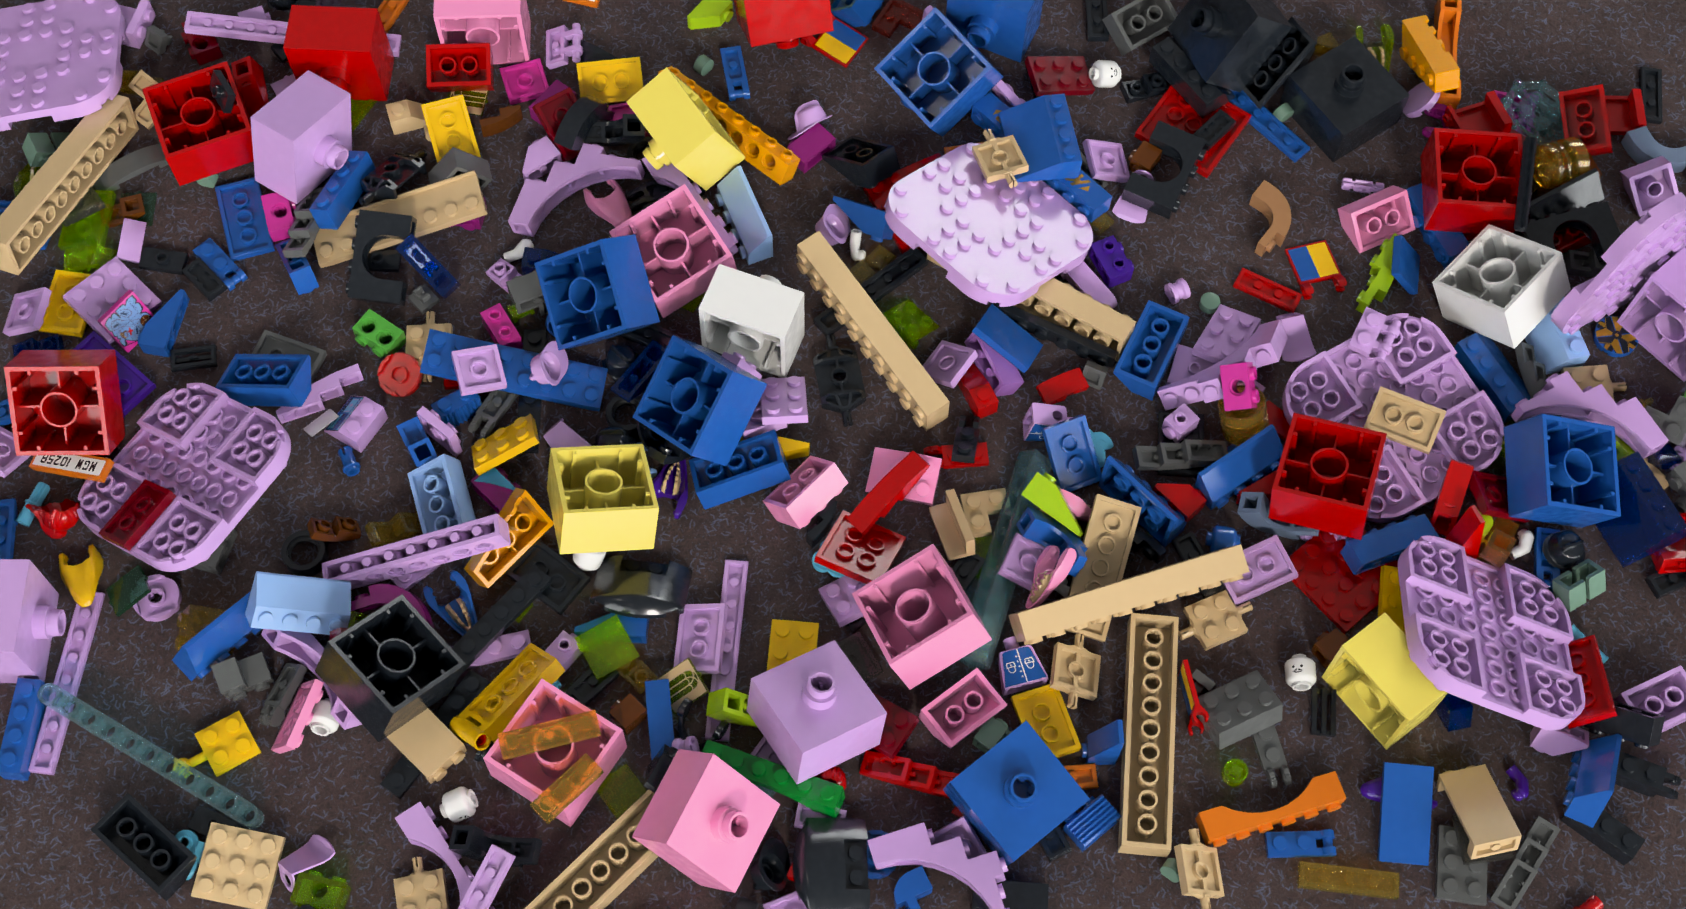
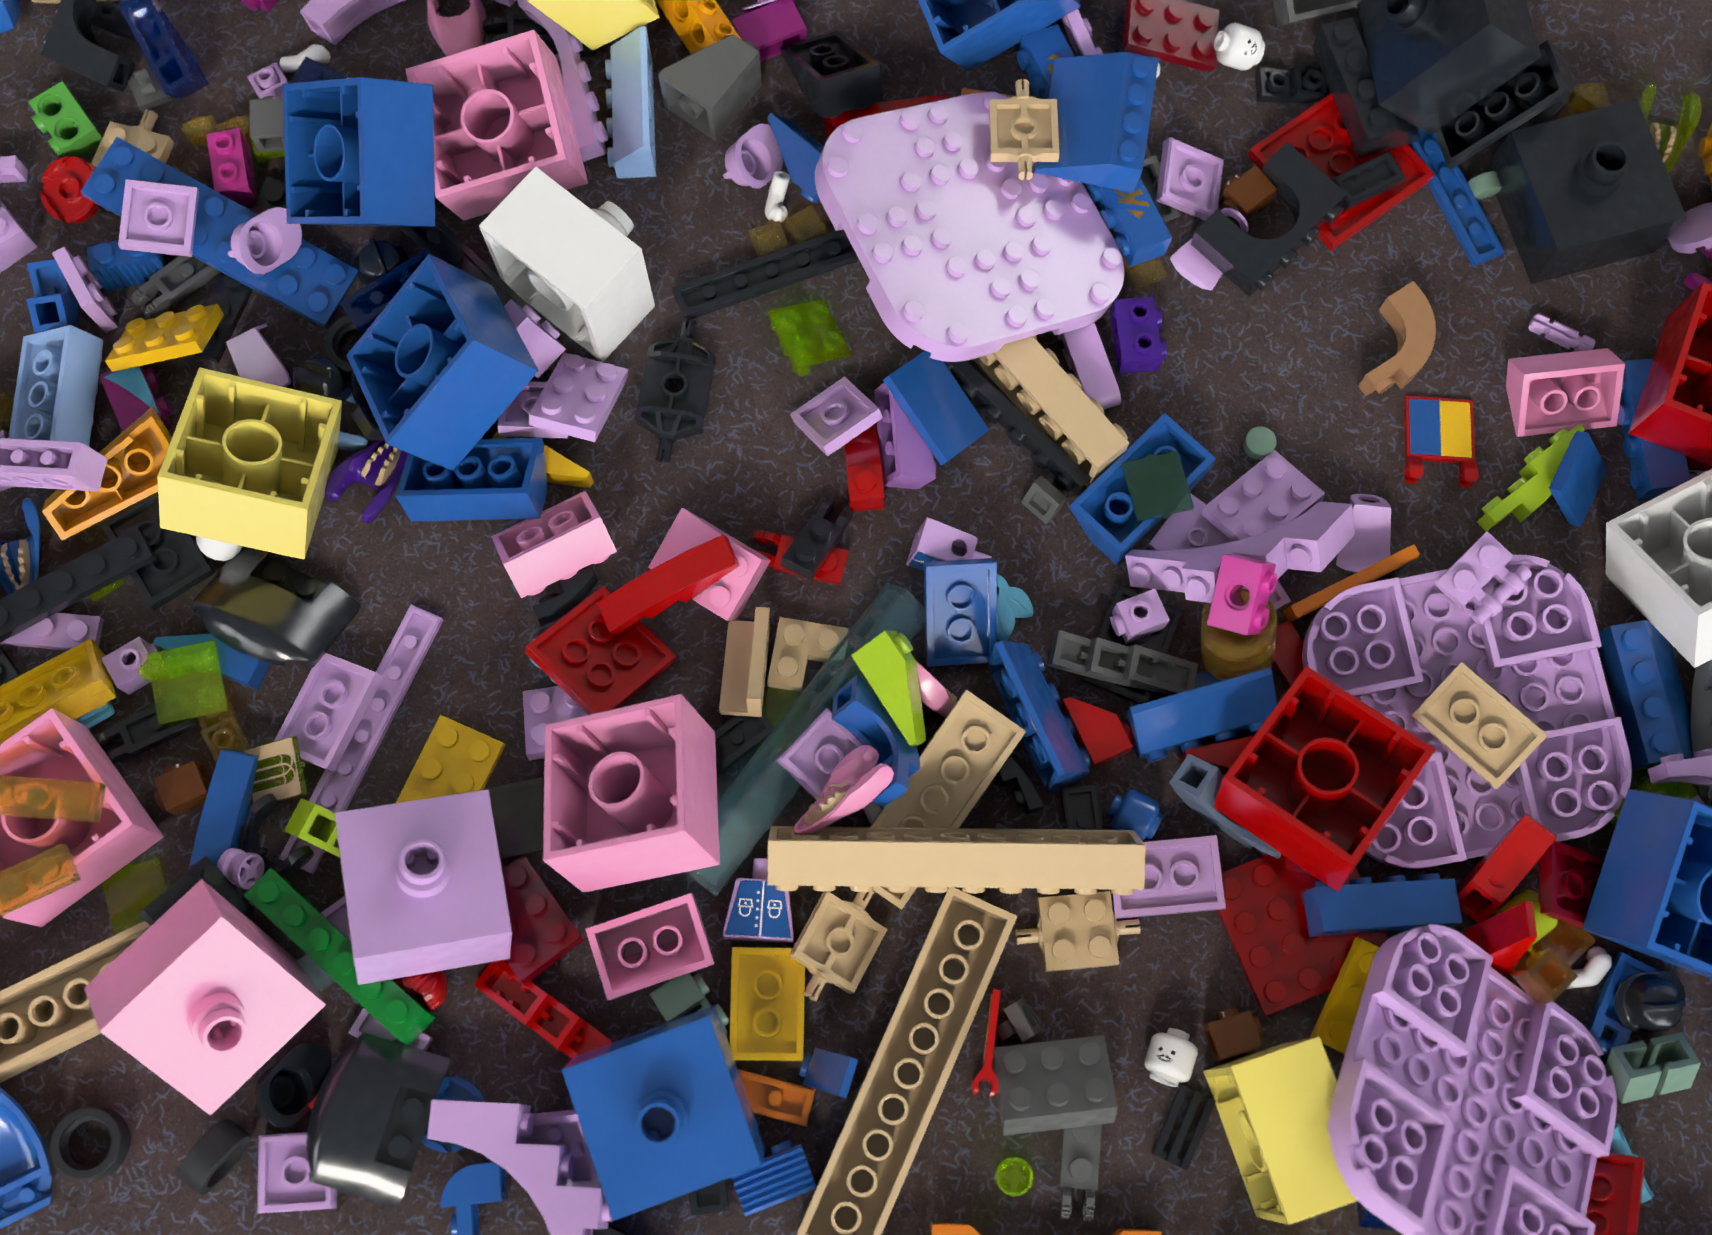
camera: 20 degrees right, 10 degrees up
(471, 313) = (200, 126): none -> clear yellow slope
(790, 190) = (712, 84): none -> dark grey slope
(872, 331) = (740, 333): tan brick -> none
(1061, 386) = (990, 502): red slope -> none
(1161, 343) = (1157, 486): none -> clear green piece
(1177, 291) = (1218, 410): lavender wheel -> none
(1267, 290) = (1354, 451): red tile -> none
(1312, 351) = (1362, 577): none -> orange tile

